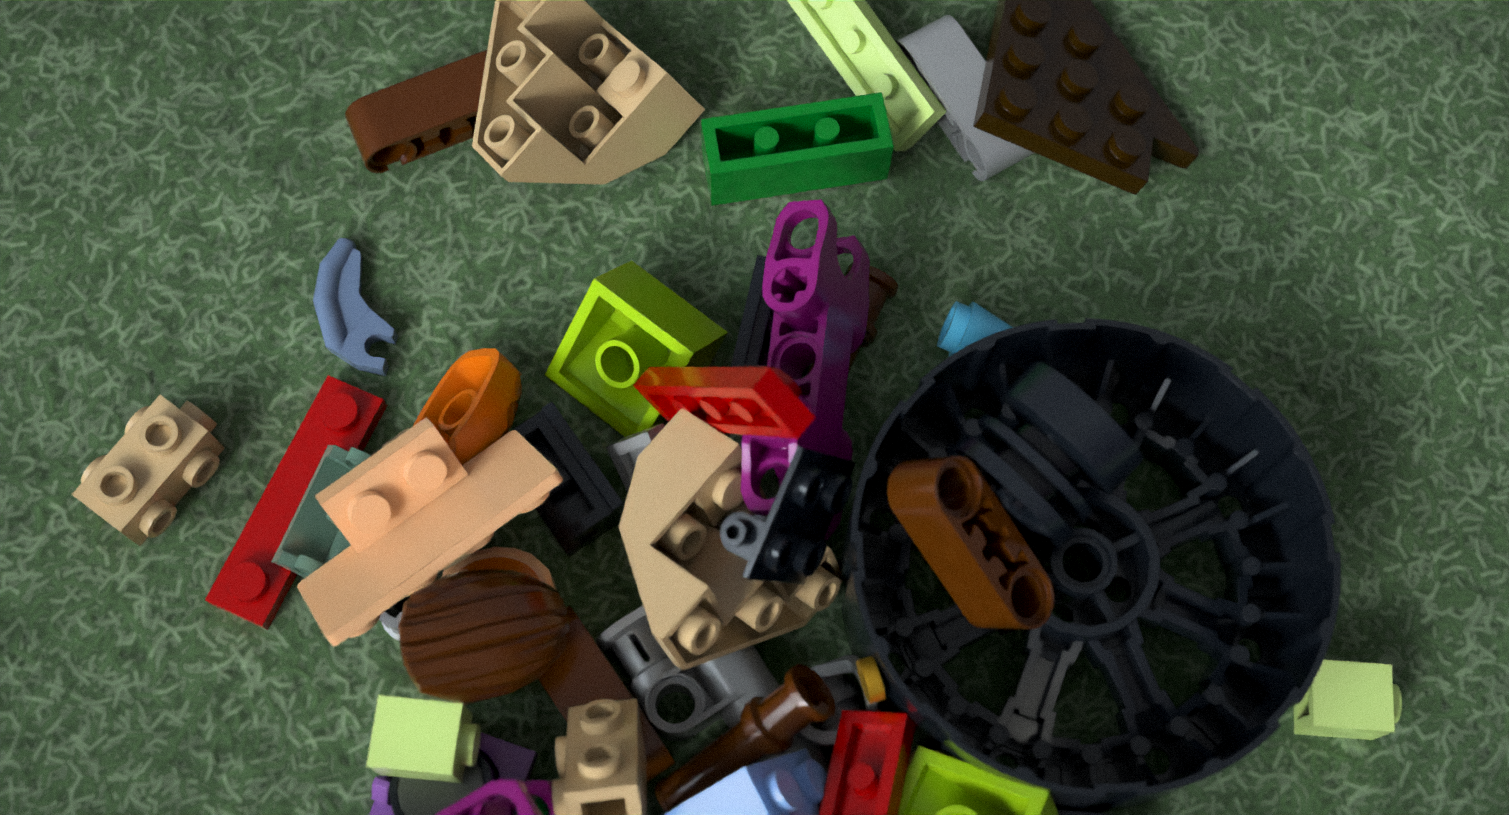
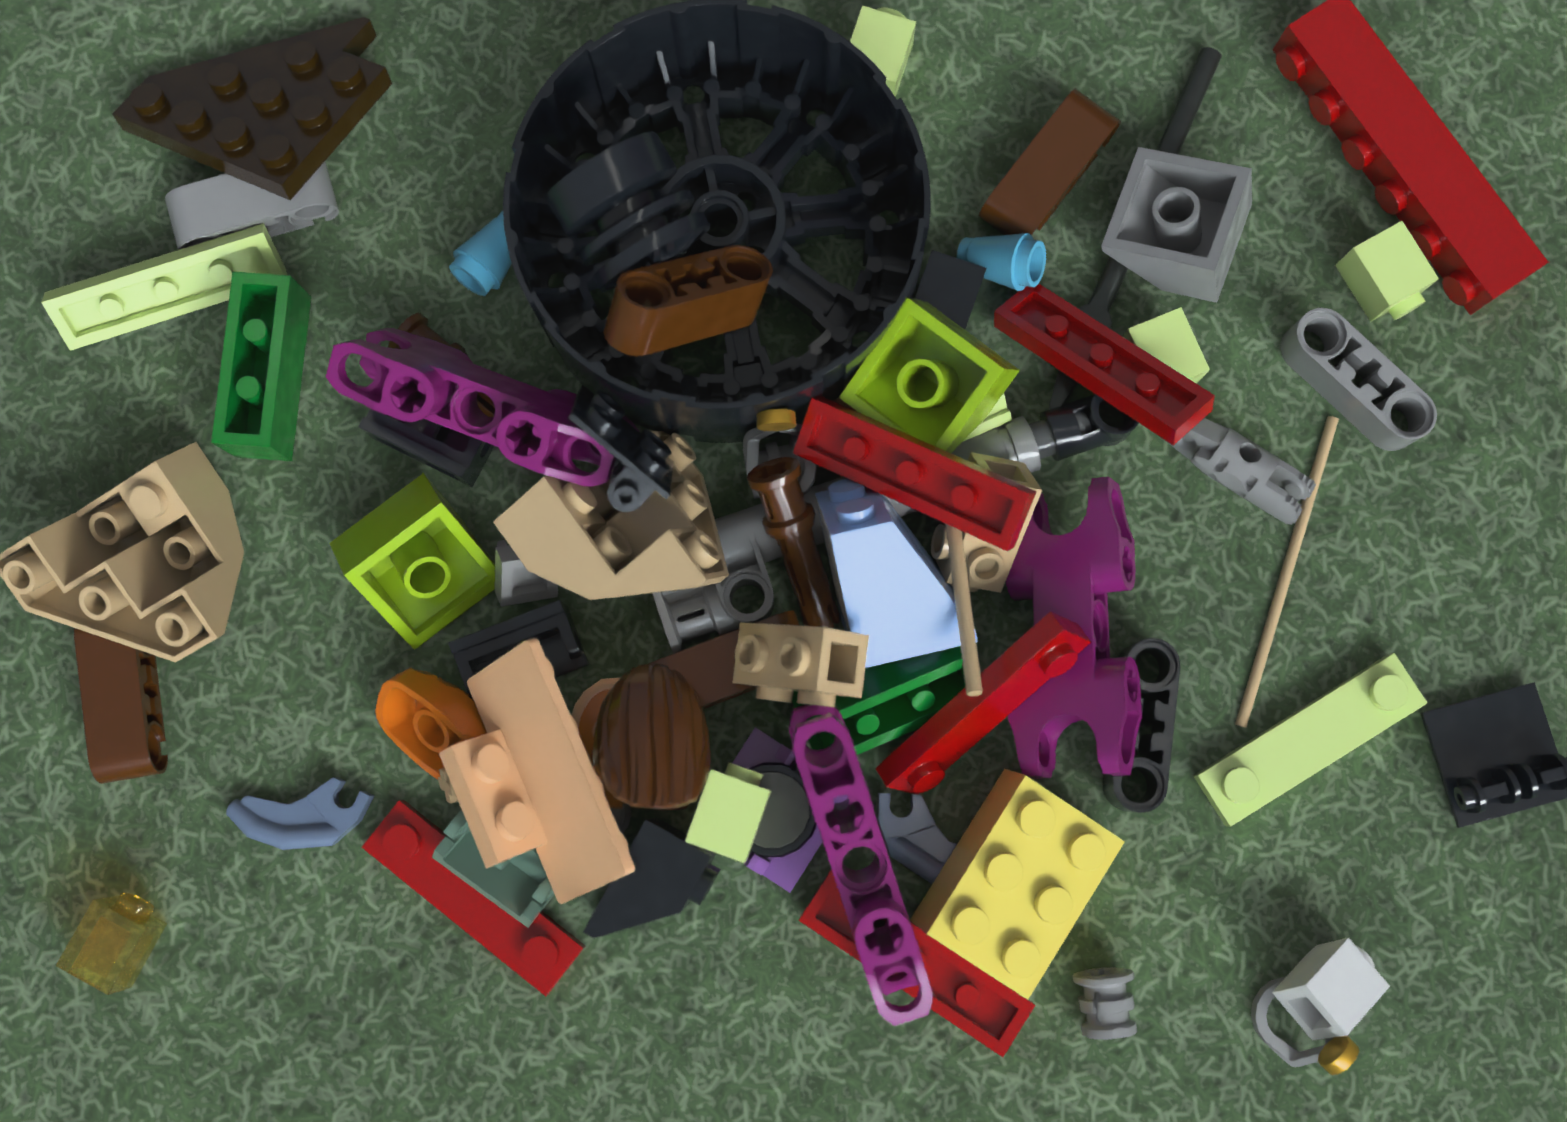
camera: 70 degrees left, 10 degrees up
(151, 469) = (408, 1026): tan brick -> none
(190, 168) = (112, 942): none -> clear yellow brick
(339, 681) = (663, 883): none -> black slope
(730, 398) = (504, 472): red plate -> none

